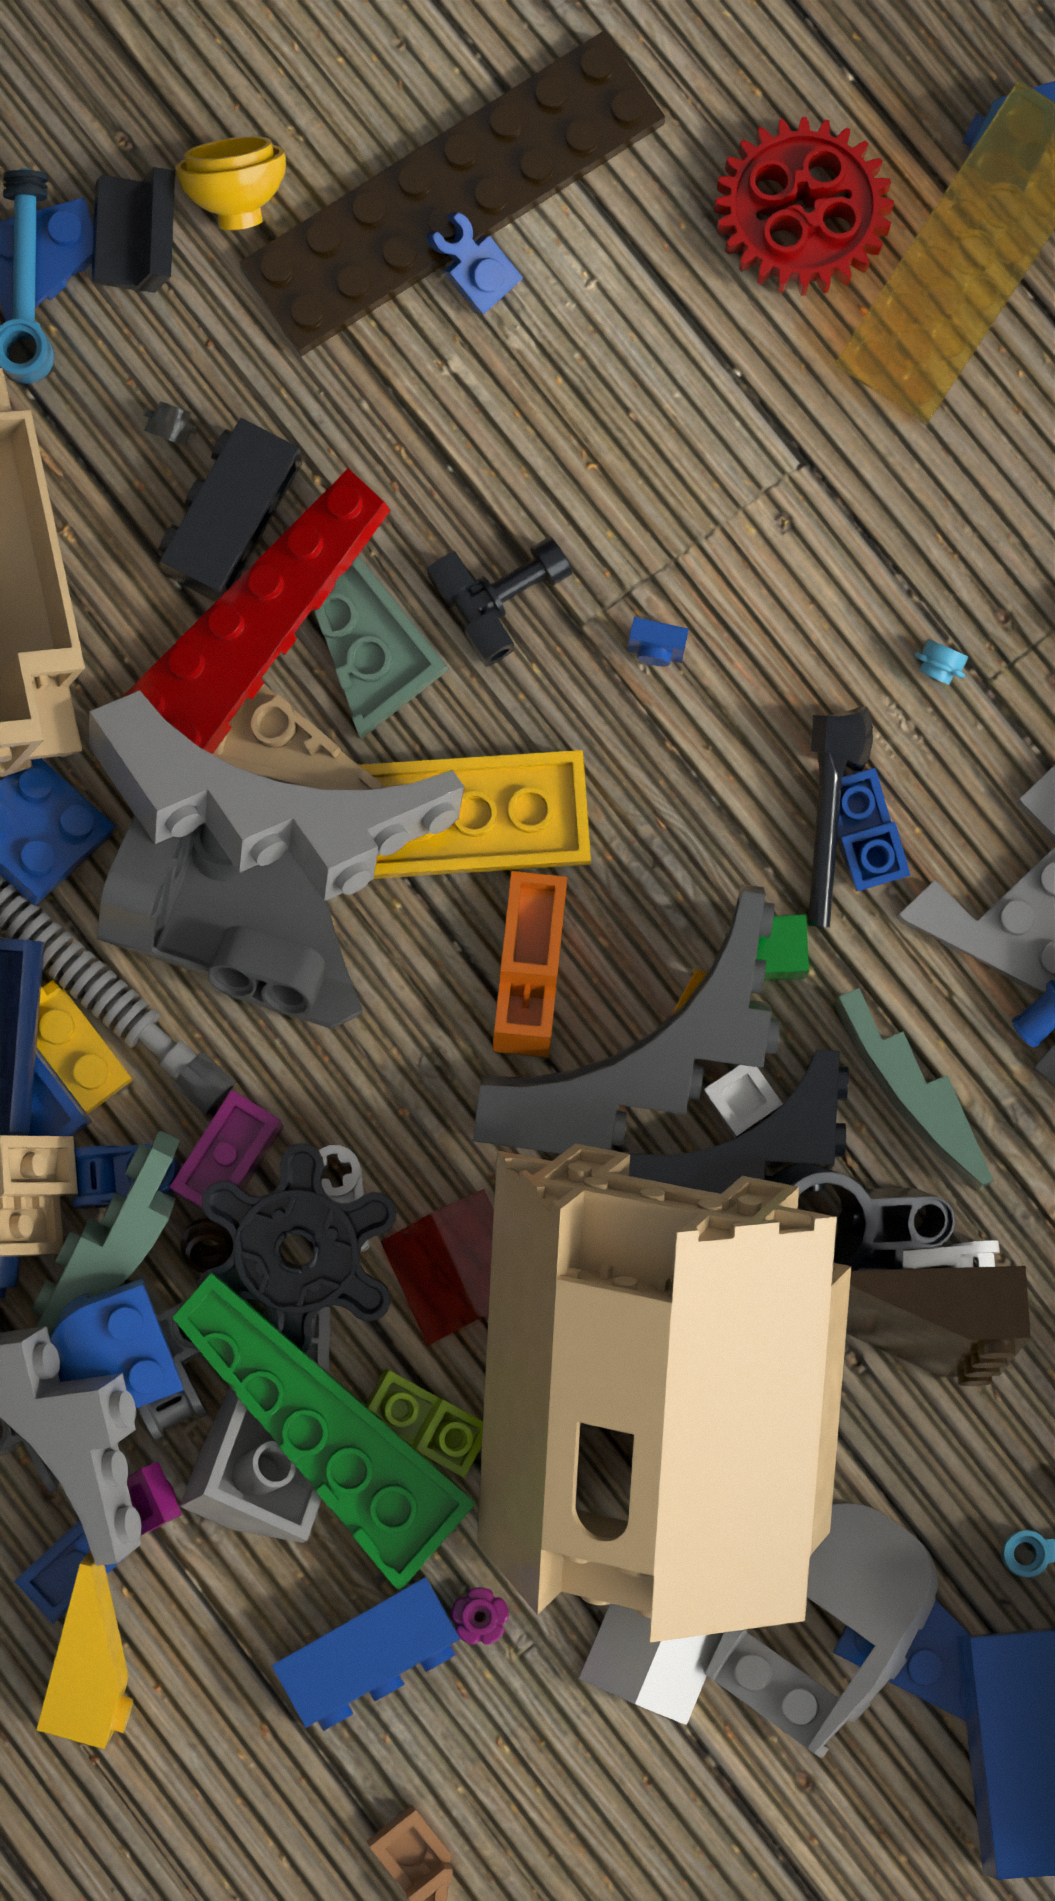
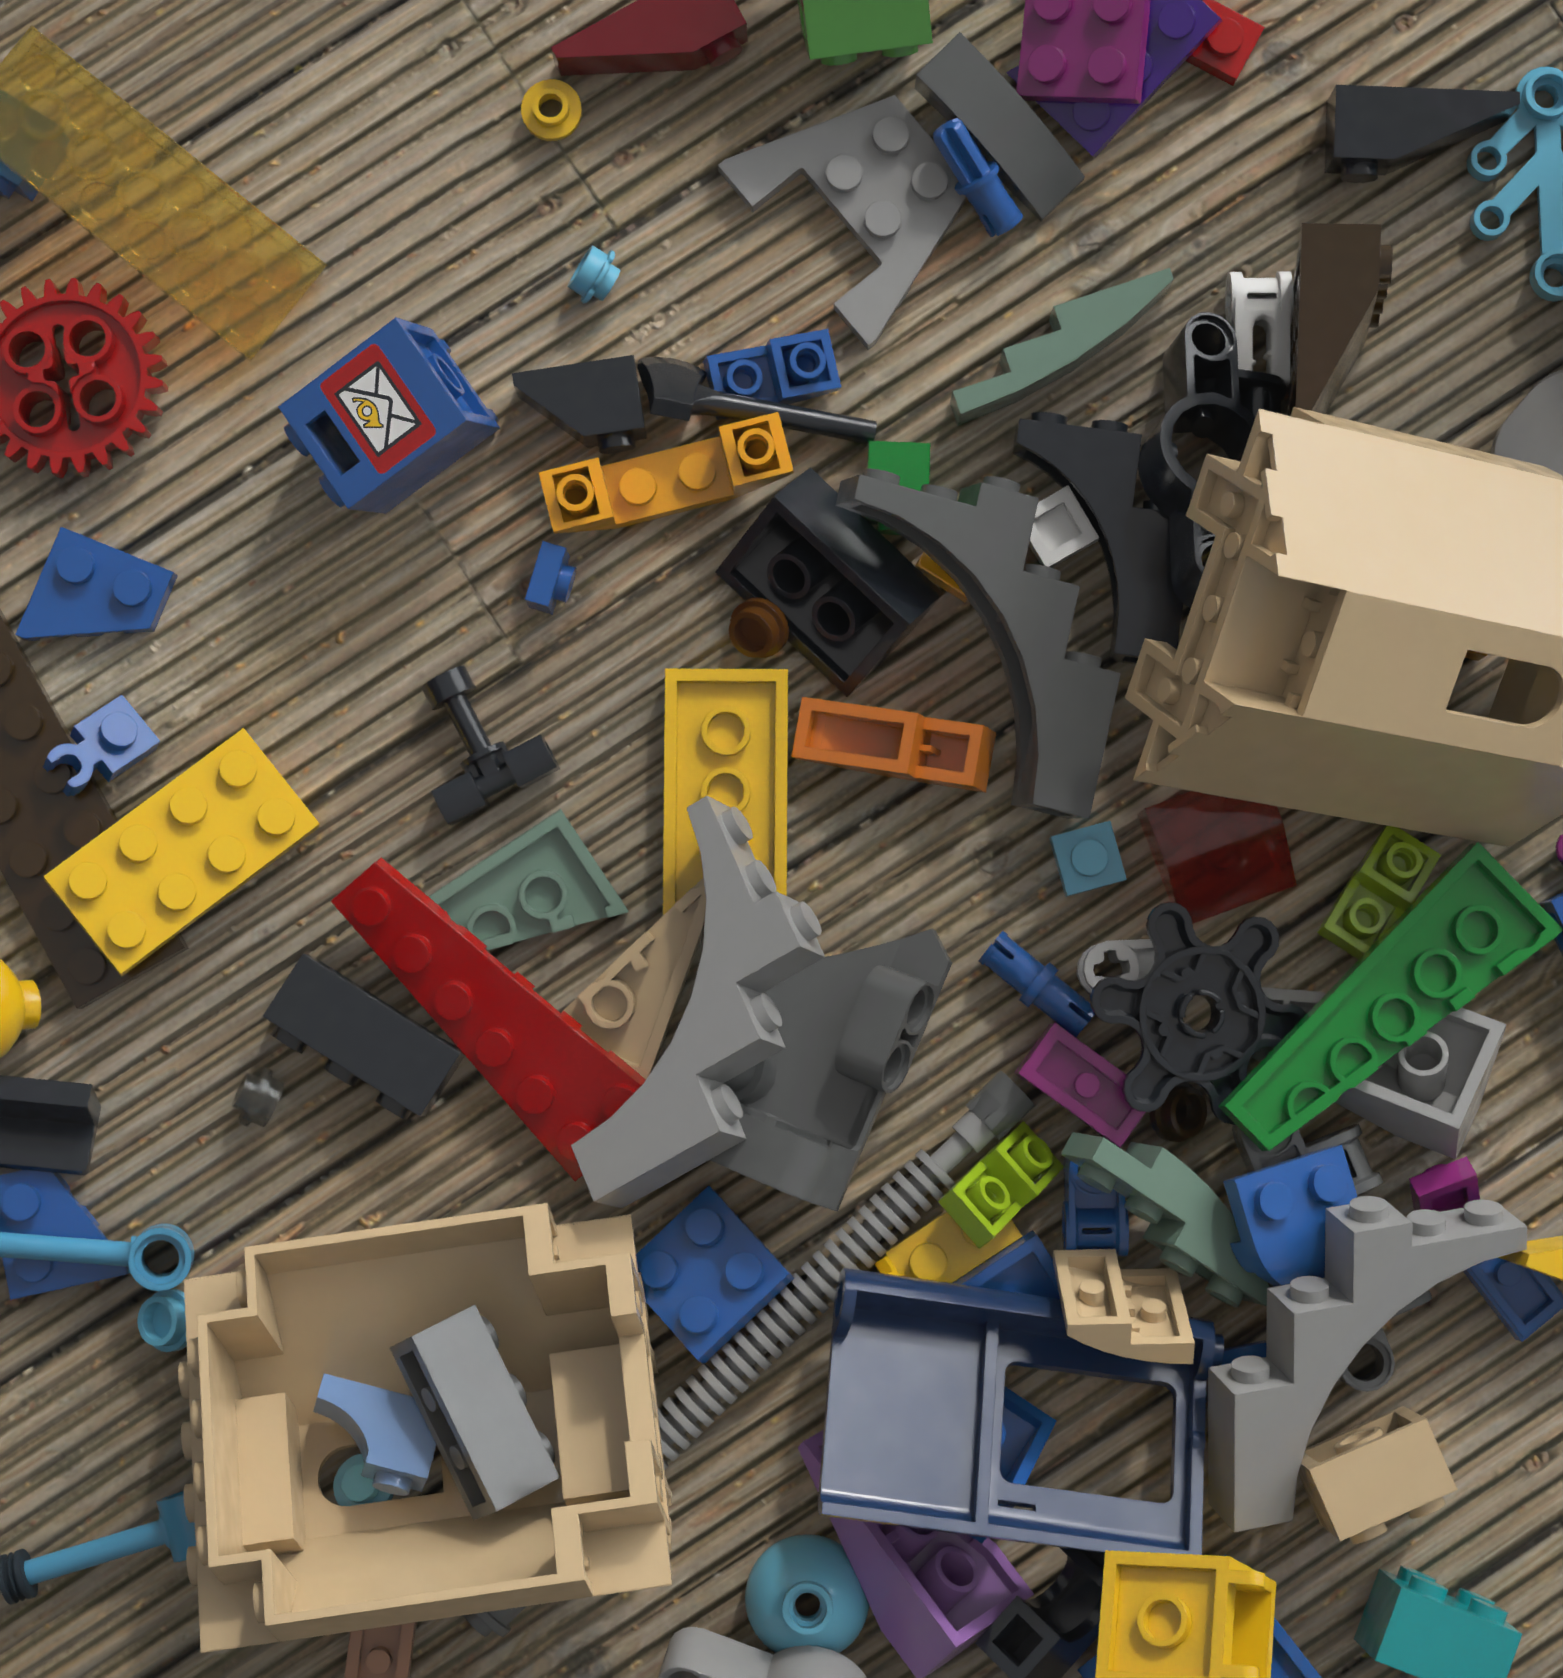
camera: 80 degrees left, 5 degrees up
(130, 1086) = (1001, 1184): none -> lime slope
(320, 1106) = (1038, 984): none -> blue pin
(384, 339) = (181, 852): none -> yellow plate
(438, 1150) = (1087, 858): none -> medium azure plate
(614, 247) = (94, 591): none -> blue wing
(626, 832) = (758, 628): none -> reddish brown plate
(674, 892) = (832, 578): none -> black slope
(754, 735) = (667, 481): none -> light orange slope
(788, 482) = (387, 418): none -> blue container
(824, 666) = (589, 401): none -> black slope

